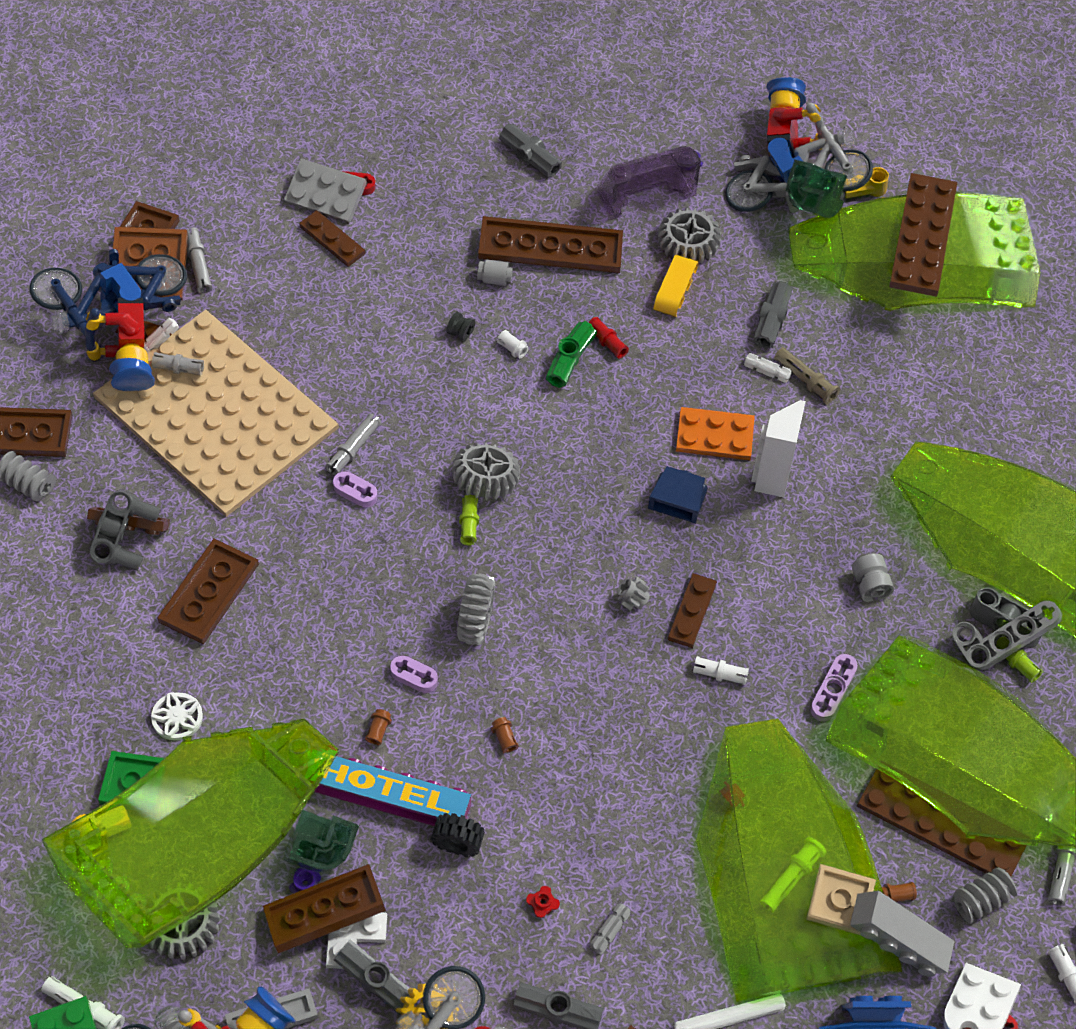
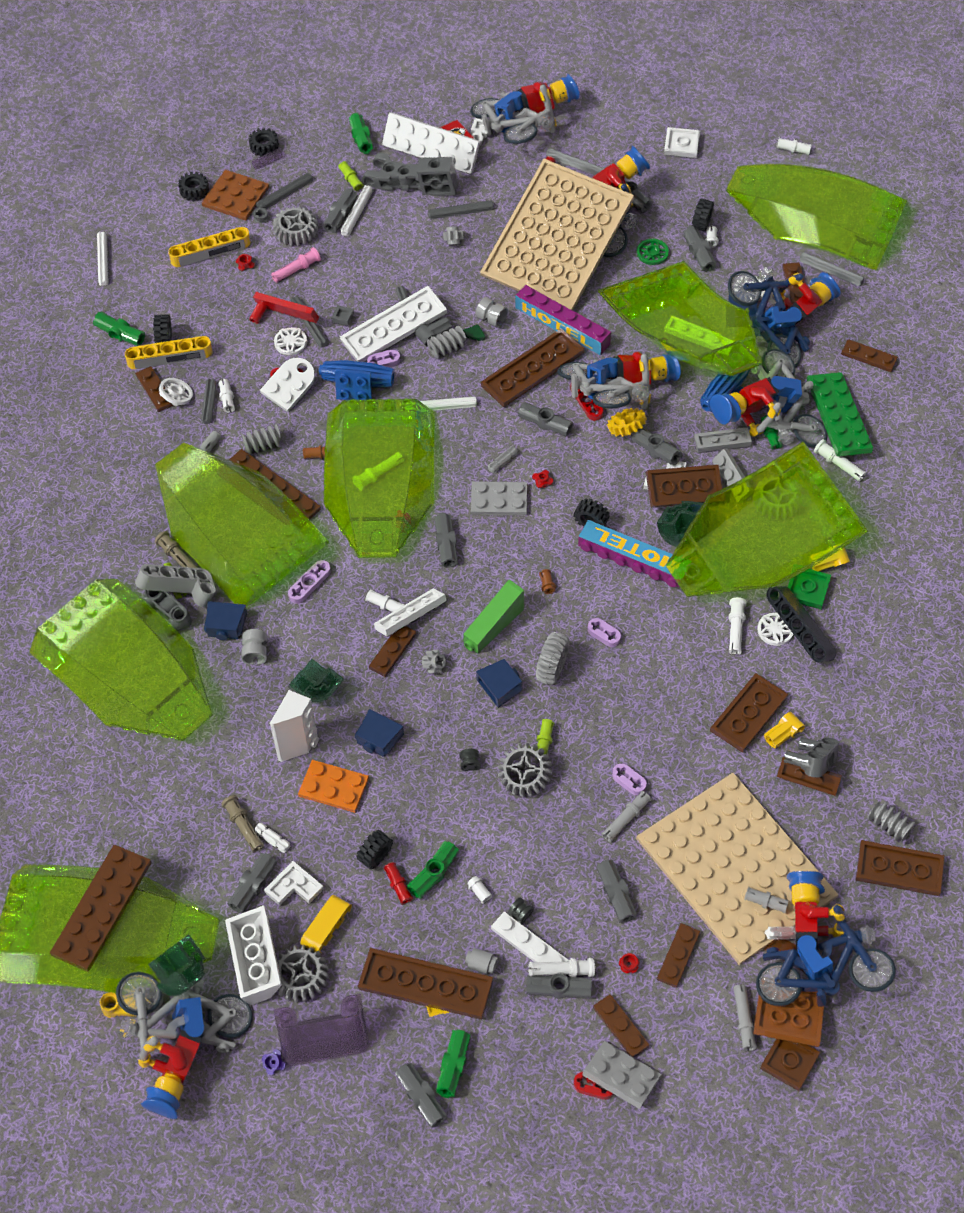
camera: 165 degrees left, 0 degrees up
(138, 709) = (807, 630): none -> black beam
(158, 576) = (787, 727): none -> yellow piece
(232, 717) = (736, 618): none -> white pin
(252, 949) = (728, 467): none -> light grey plate
(275, 311) = (678, 955): none -> reddish brown plate
(326, 291) = (629, 957): none -> red plate
(354, 360) = (616, 890): none -> dark grey piece
(378, 726) = (632, 602): dark orange pin -> none
(393, 275) = (572, 968): none -> white pin
(405, 259) = (573, 986): none -> dark grey piece
(442, 298) = (525, 940): none -> white plate
(503, 178) = (453, 1063): none -> green piece
(540, 580) = (499, 681): none -> dark blue torso
(557, 479) = (469, 759): none -> pearl dark grey wheel
(564, 660) = (495, 617): none -> bright green slope
(601, 861) = (499, 498): none -> light grey plate
(643, 356) = (374, 849): none -> black tyre
(662, 774) = (446, 540): none -> dark grey piece
(682, 653) = (410, 612): none -> white plate
(726, 325) = (293, 879): none -> white plate
(746, 233) = (253, 955): none -> white slope
(776, 536) = (316, 682): none -> clear green brick
(836, 896) = (357, 428): tan tile -> none
(902, 933) = (325, 409): light grey brick -> none
(925, 610) = (225, 620): none -> dark blue torso
(1039, 703) = (172, 548): none -> dark tan pin

